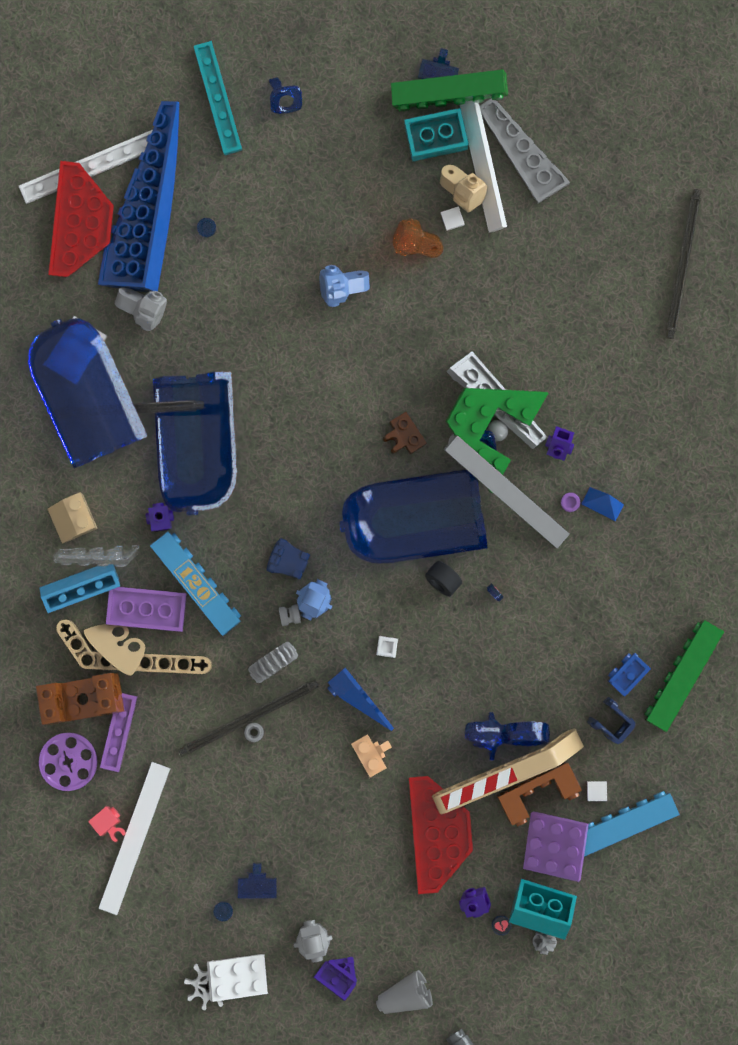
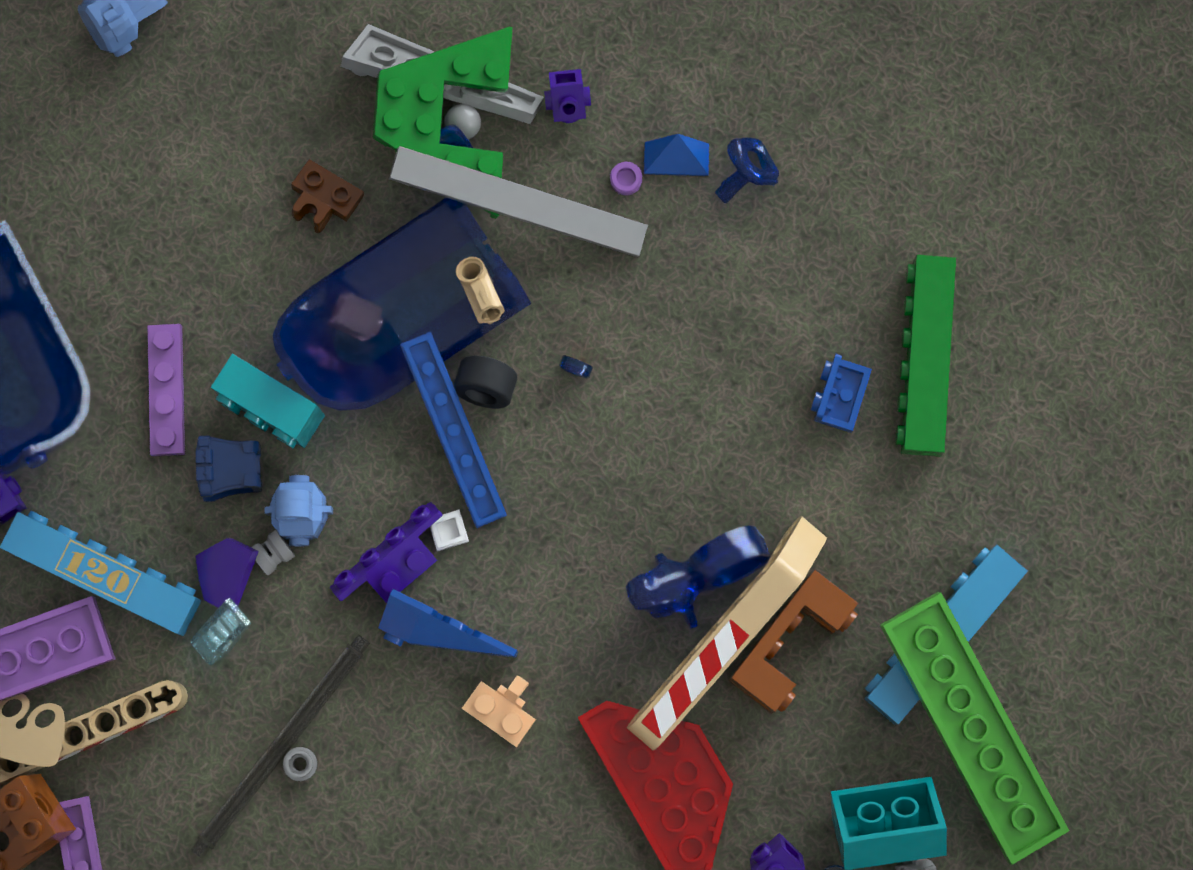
camera: 25 degrees left, 5 degrees down
(243, 645) = (218, 635): none -> clear light blue slope
(260, 614) = (225, 571): none -> dark purple slope
(273, 500) = (166, 390): none -> medium lavender plate
(273, 662) = (277, 637): light grey gear -> none
(324, 535) = (267, 402): none -> teal brick
(351, 649) = (394, 561): none -> dark purple bracket
(391, 511) = (356, 316): none -> clear purple brick
(414, 596) = (453, 429): none -> blue tile
(463, 530) = (479, 290): none -> tan piece
(555, 846) = (860, 713): medium lavender plate -> none
(596, 790) = (881, 598): white tile -> none
(611, 882) = (974, 728): none -> bright green plate
(625, 729) = (877, 484): dark blue piece -> none
(635, 530) = (746, 171): none -> clear blue piece

